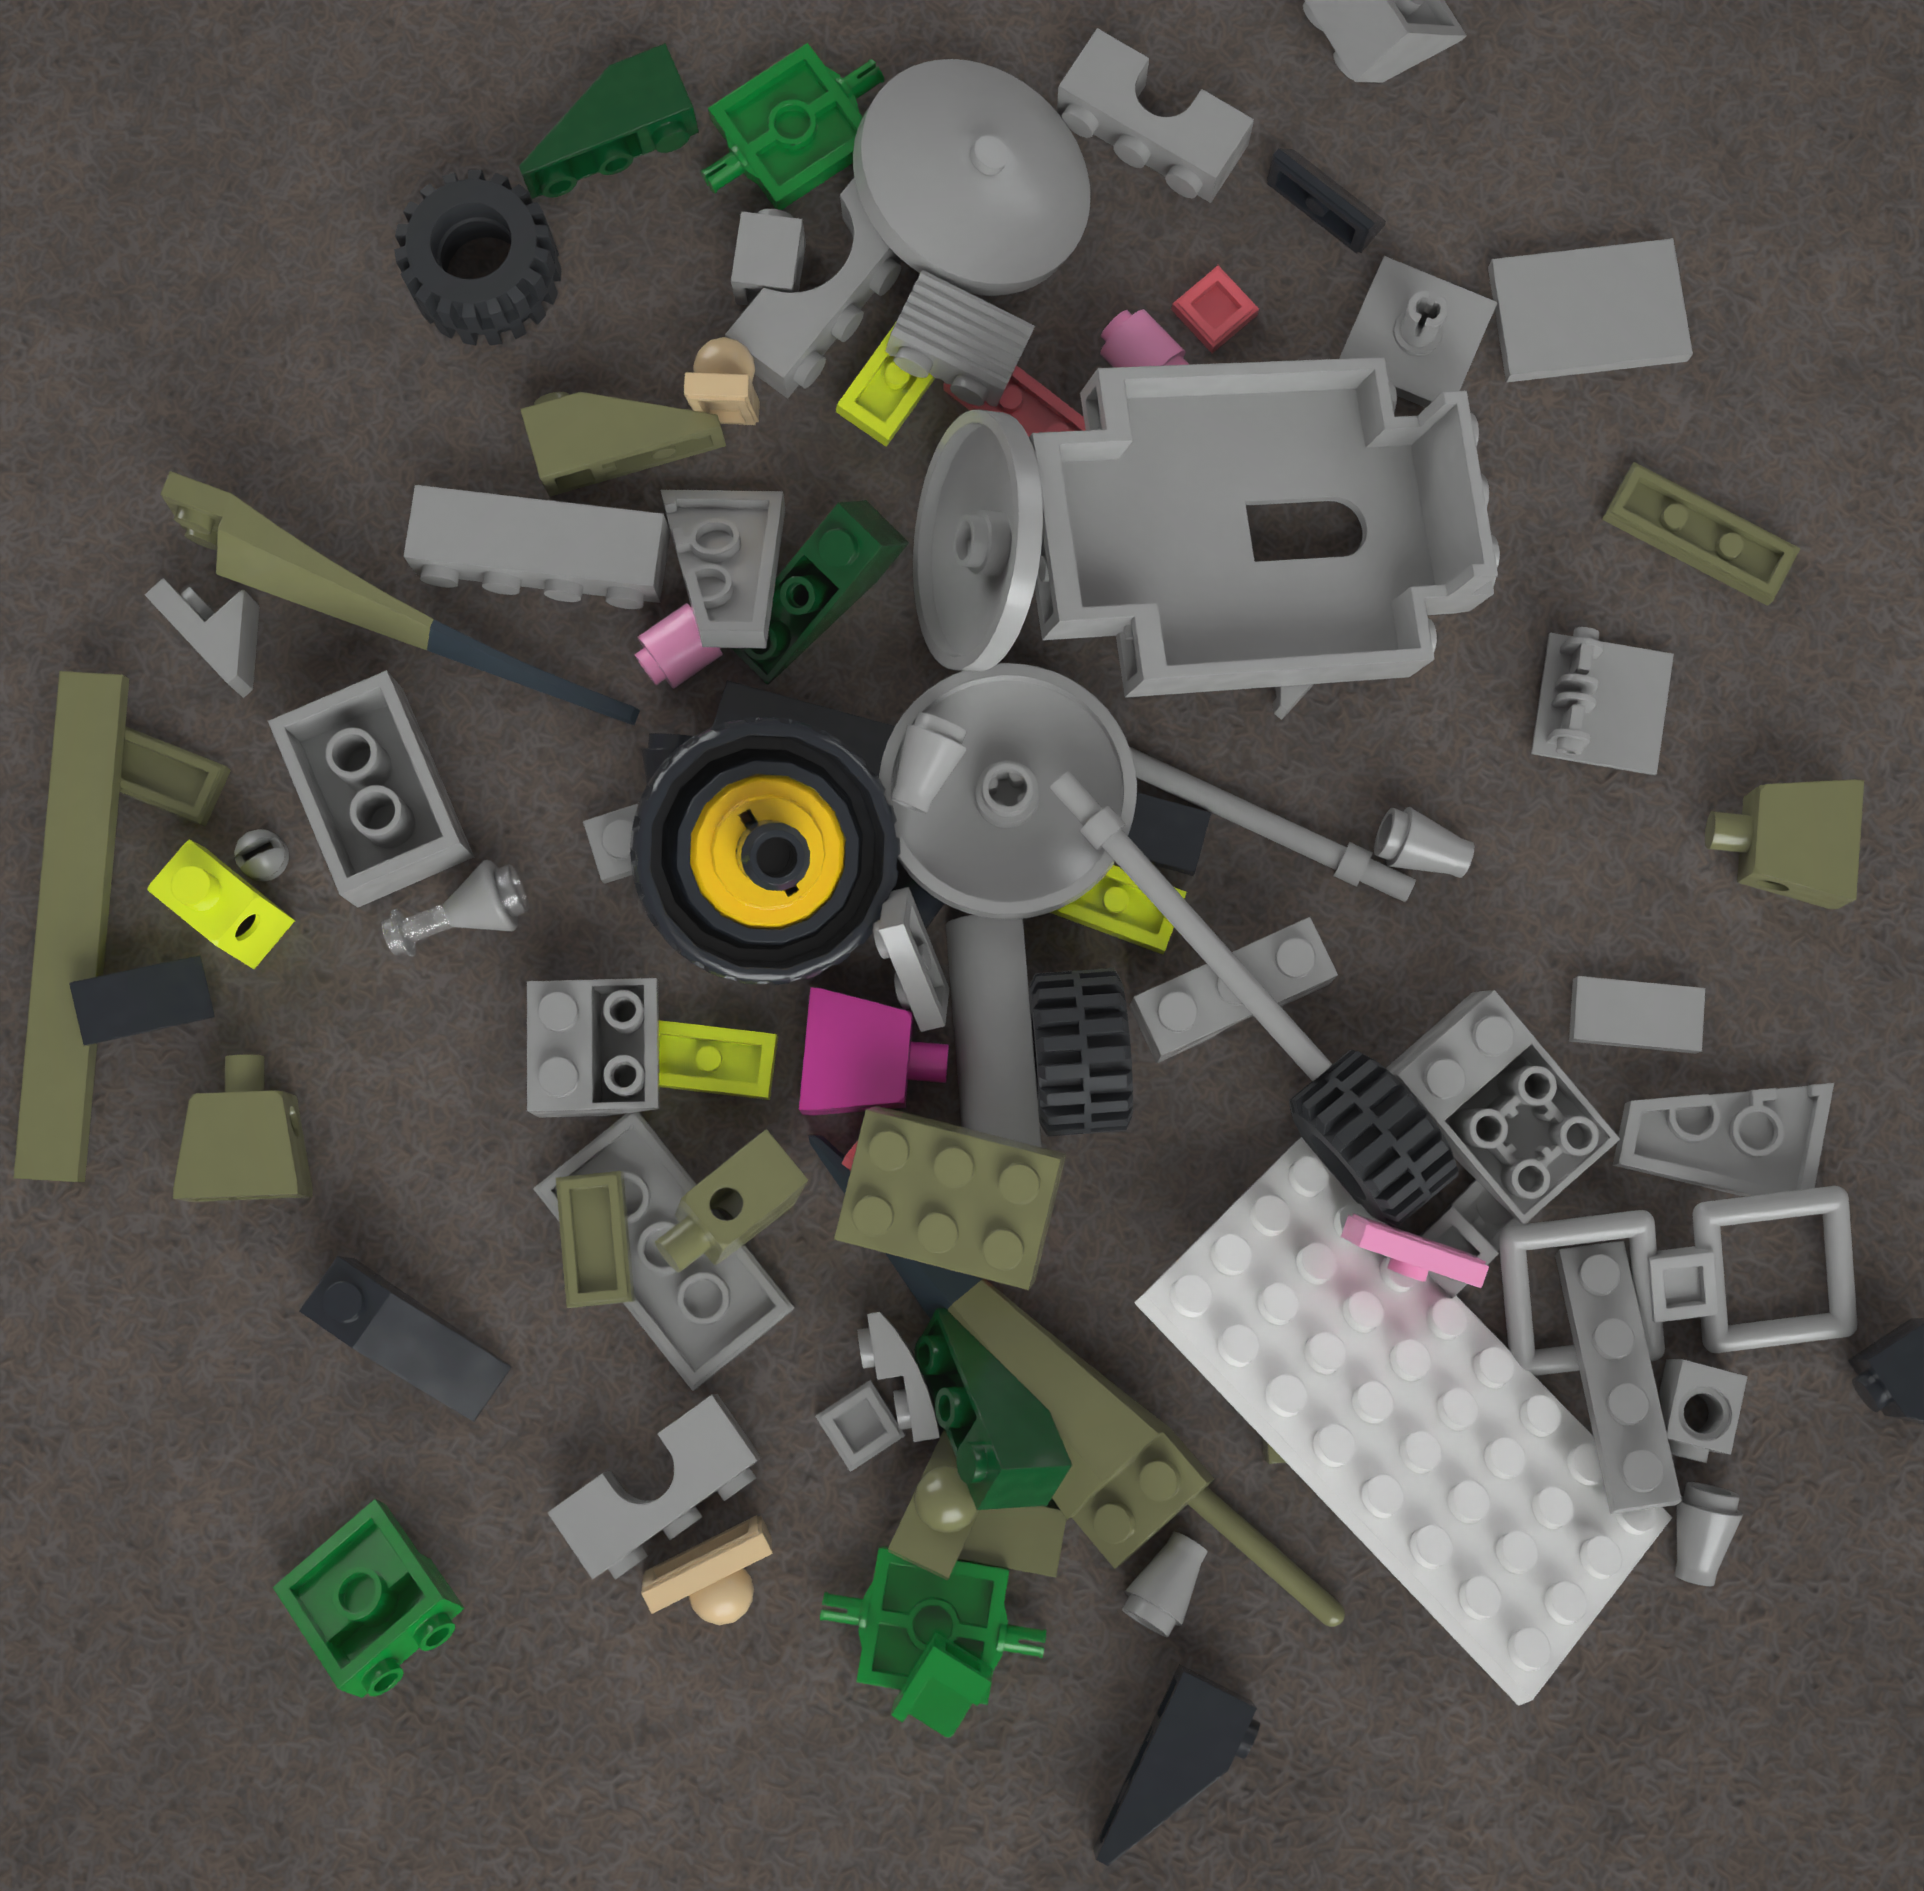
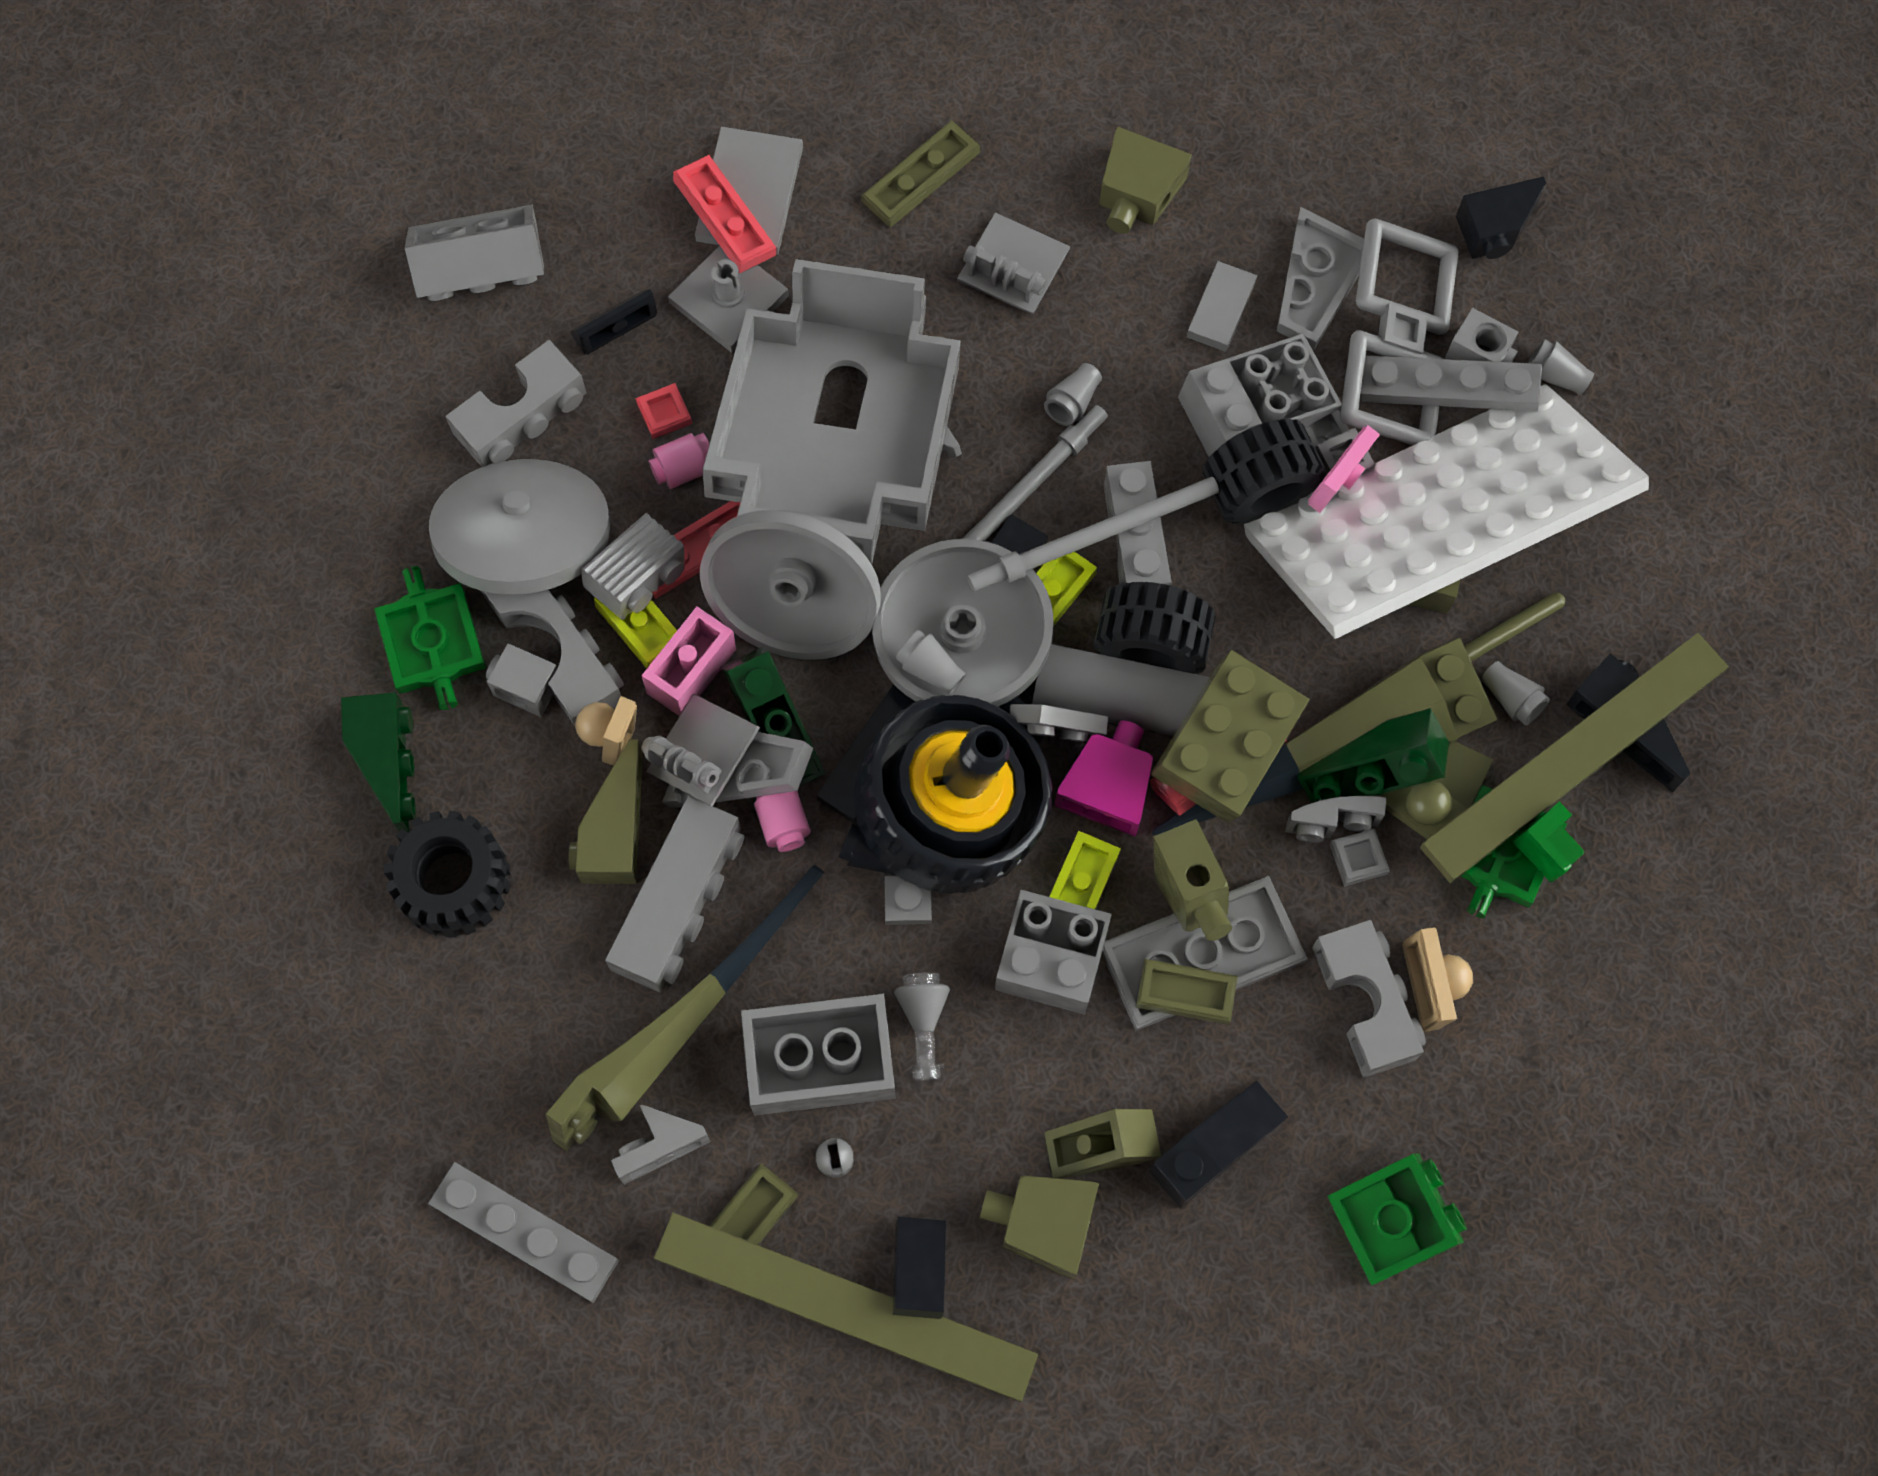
camera: 75 degrees left, 10 degrees down
(68, 511) = (524, 1232): none -> light grey plate
(217, 902) = (863, 1189): neon yellow torso -> none
(363, 1189) = (1103, 1143): none -> olive slope
(731, 508) = (700, 749): none -> light grey hinge
(851, 455) = (689, 661): none -> bright pink brick
(1080, 1695) = (1573, 758): none -> olive tile
(1532, 285) = (724, 213): none -> coral tile

